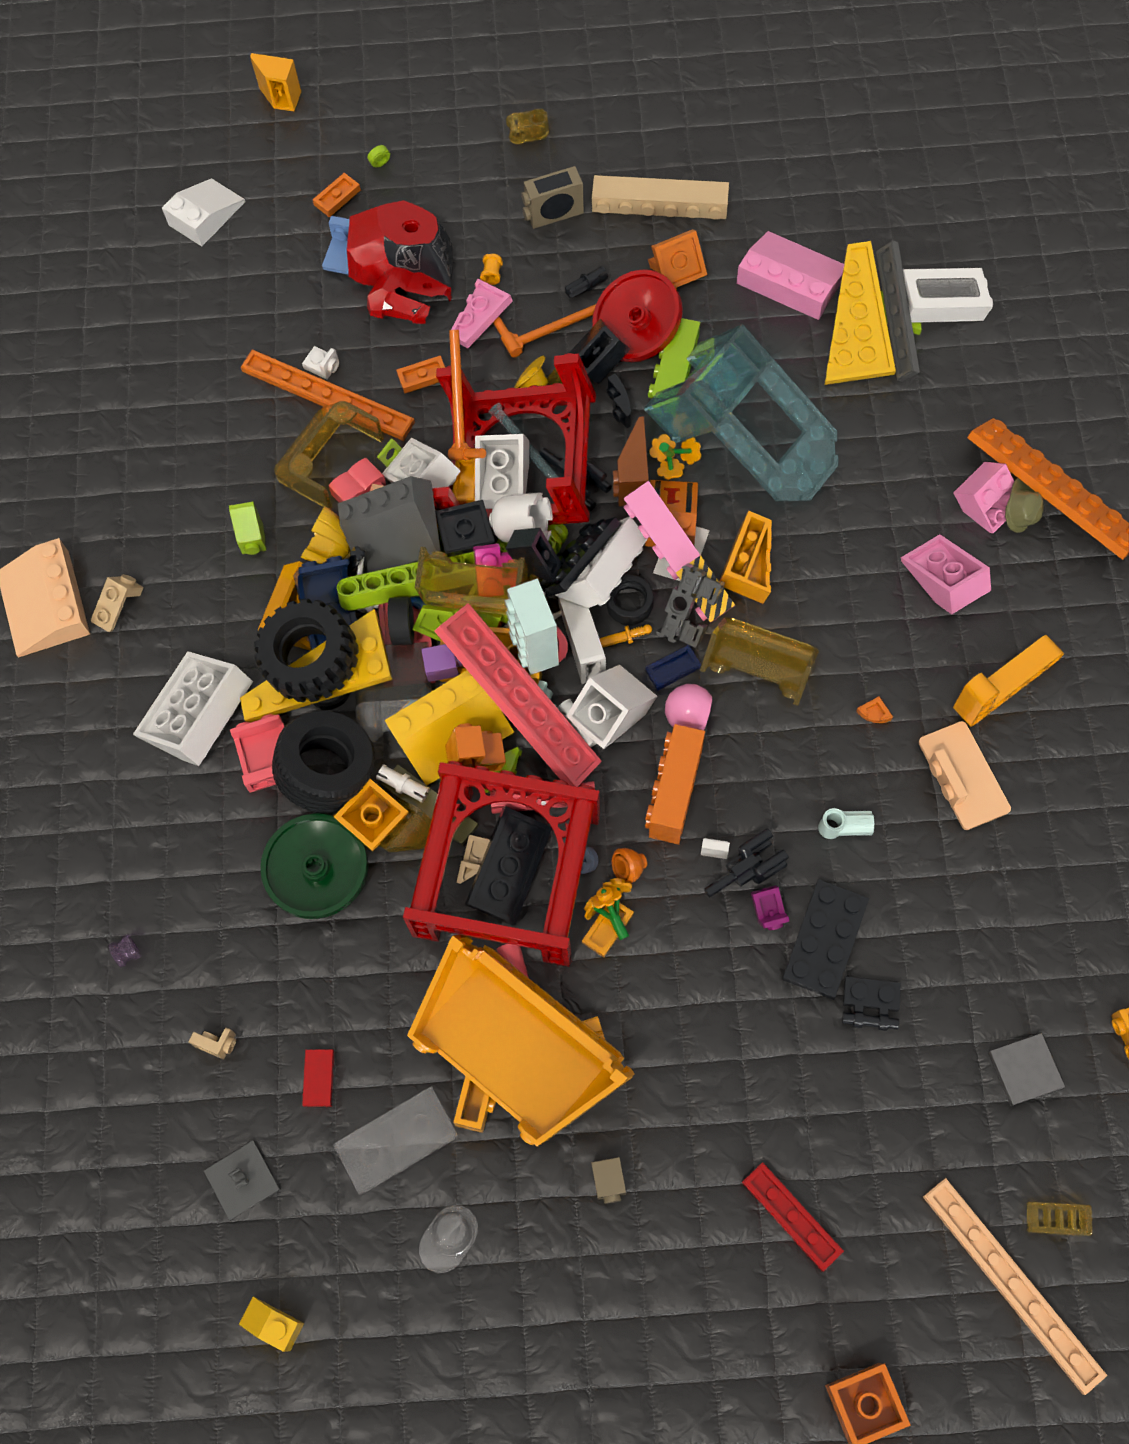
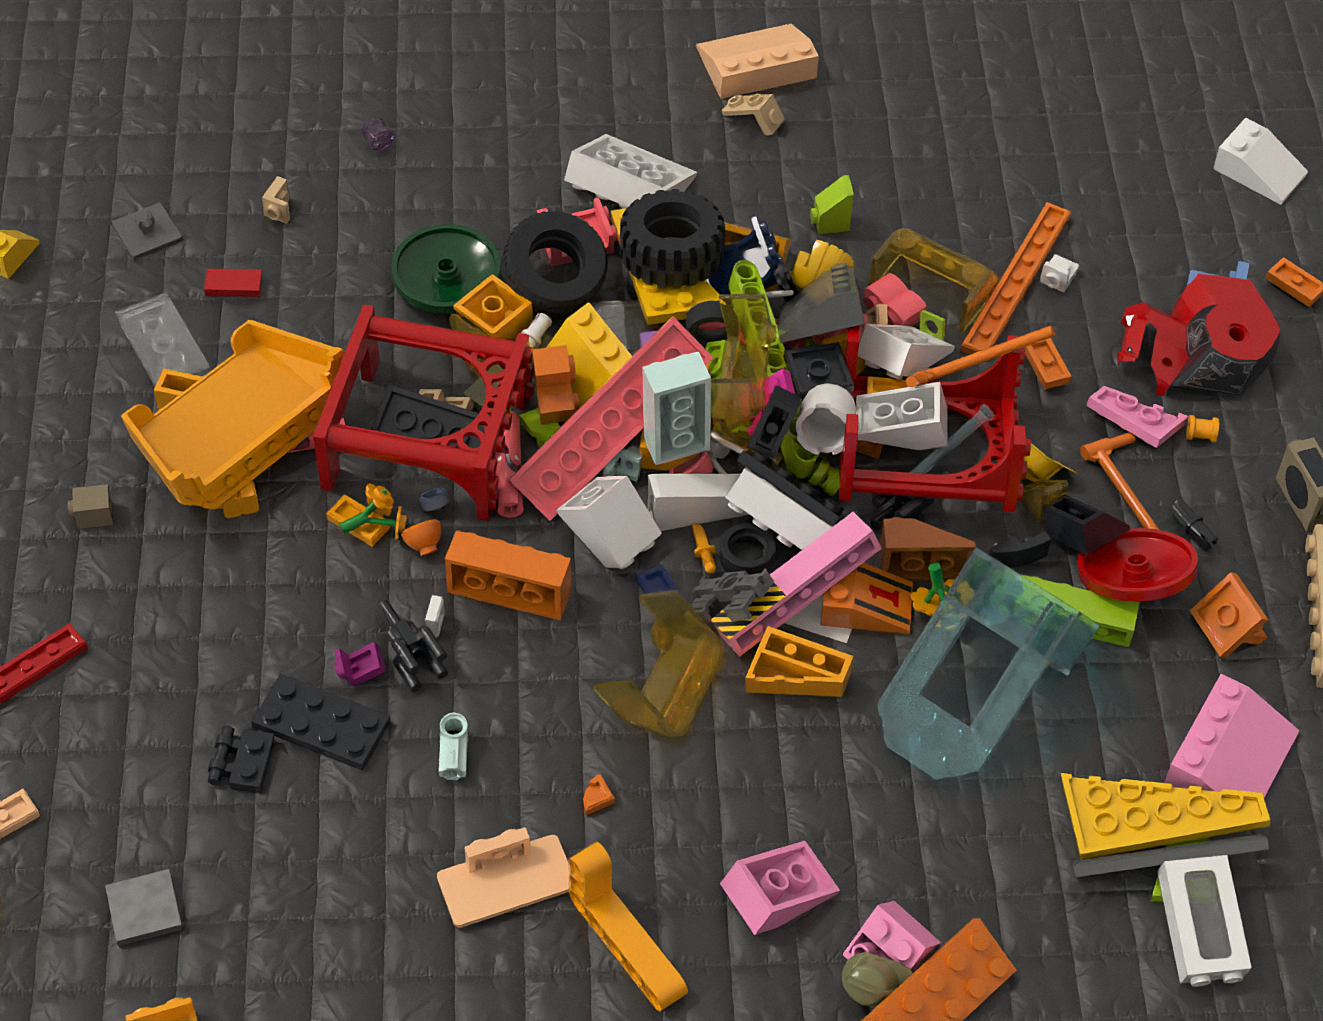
camera: 85 degrees right, 15 degrees down
(448, 1239) = (63, 384): clear piece -> none
(688, 706) = (602, 596): bright pink helmet -> none

